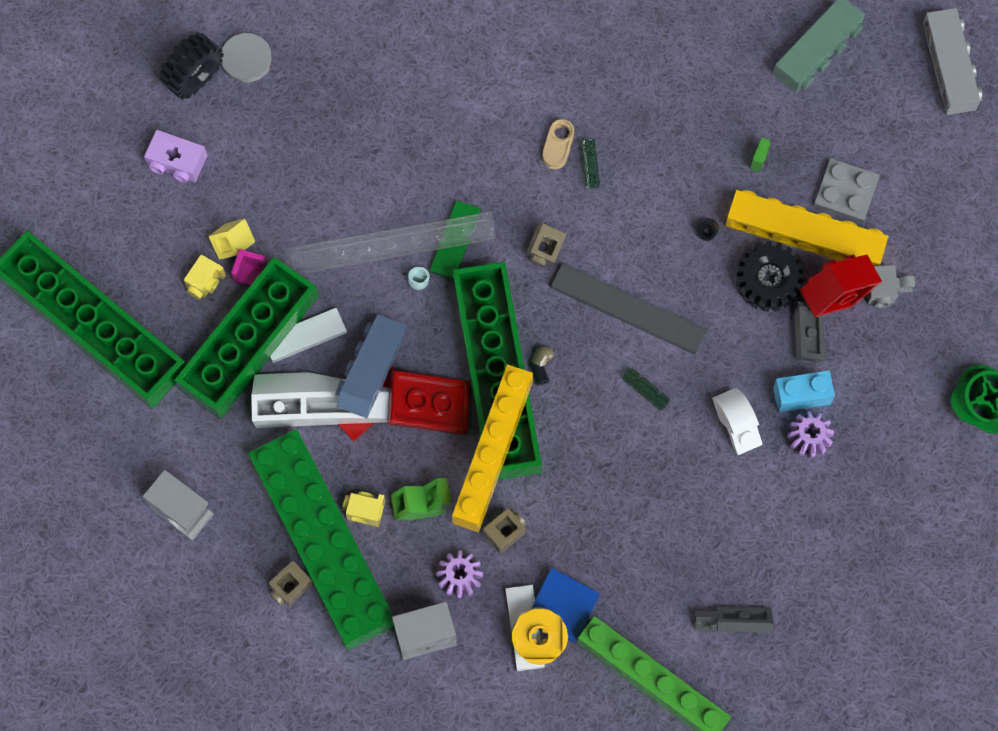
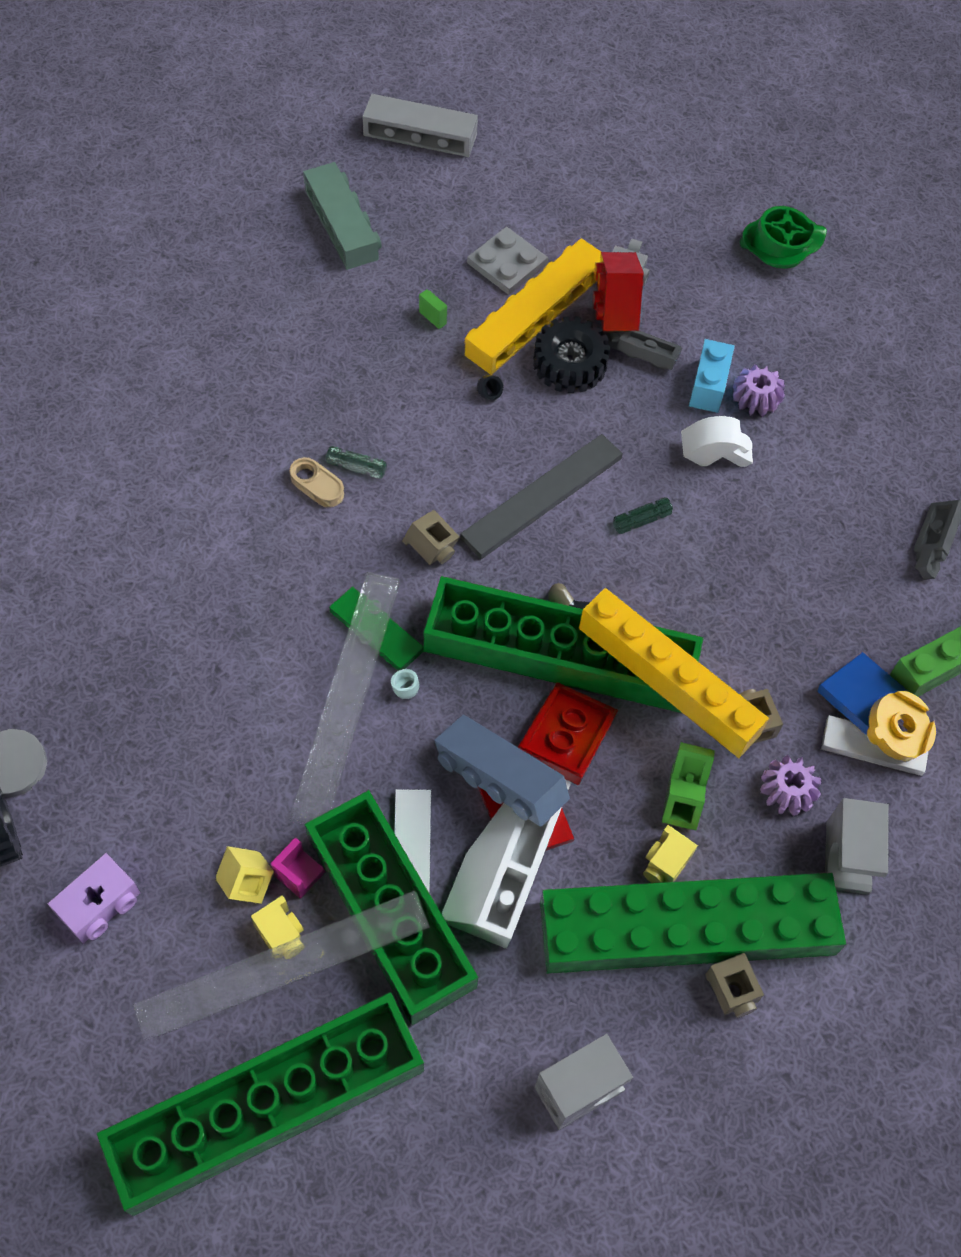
camera: 70 degrees left, 10 degrees down
(176, 289) = (280, 966): none -> clear tile

